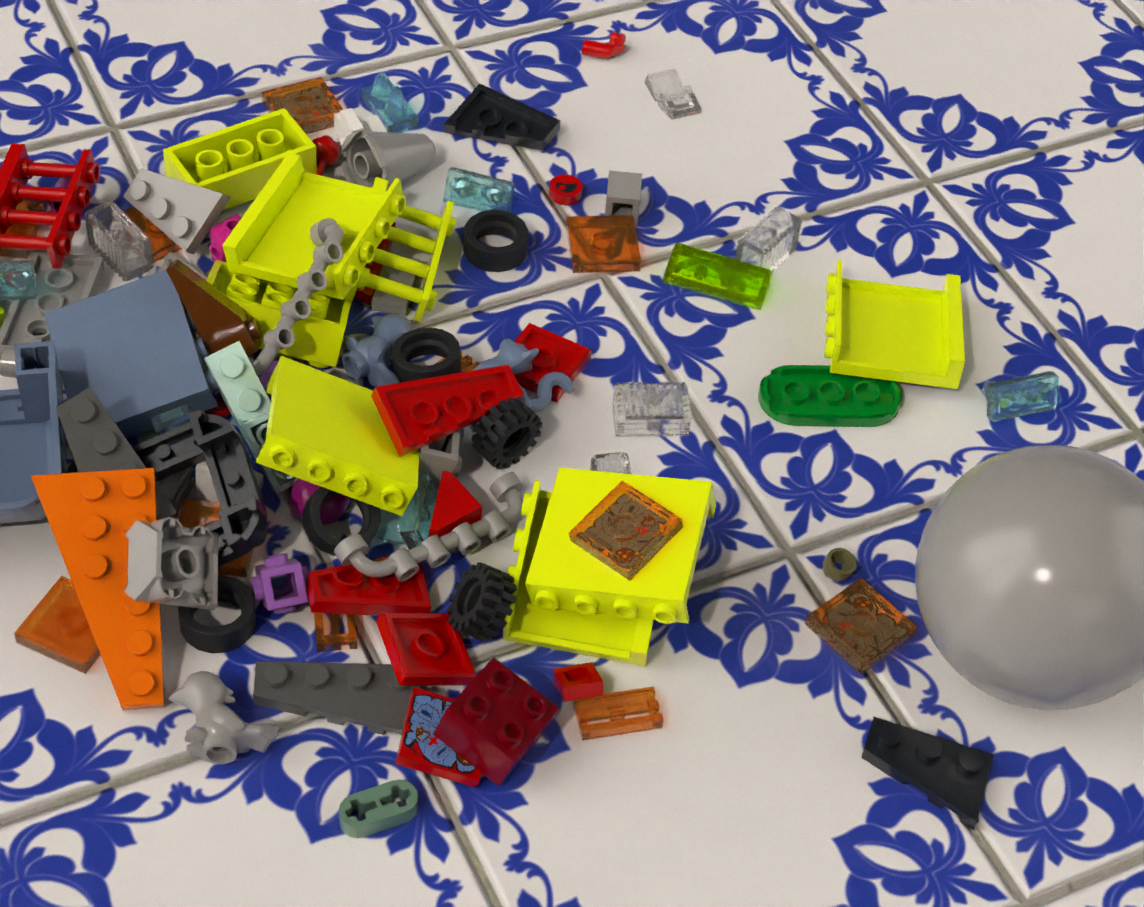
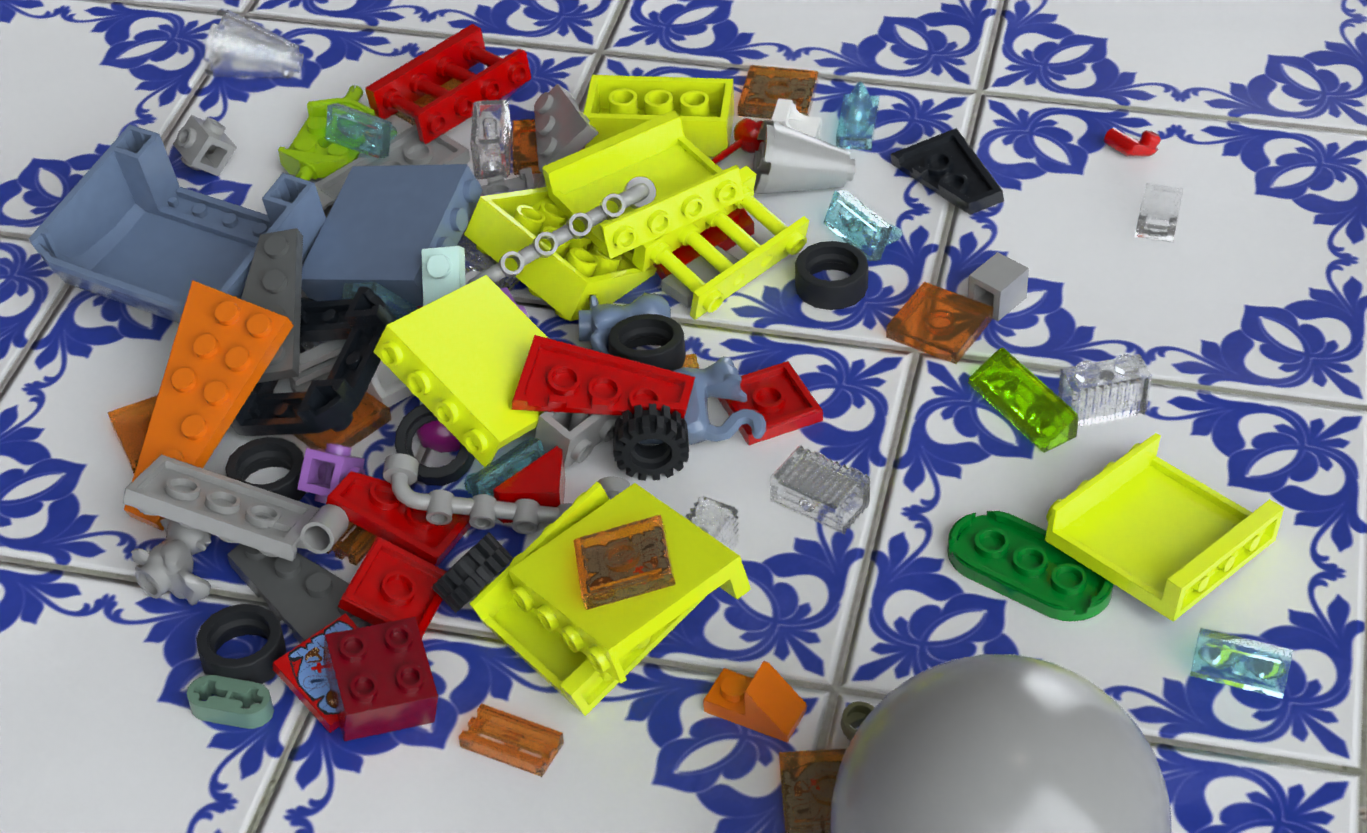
camera: 45 degrees right, 5 degrees down
(173, 564) = (241, 407): light grey slope -> none
(213, 313) = (474, 215): reddish brown slope -> none
(244, 653) = (234, 509): none -> light grey hinge
(340, 733) = (235, 622): none -> black tyre
(565, 189) = (953, 258): red tile -> none
(578, 681) = (499, 691): red tile -> none
(755, 591) = (757, 703): none -> orange slope

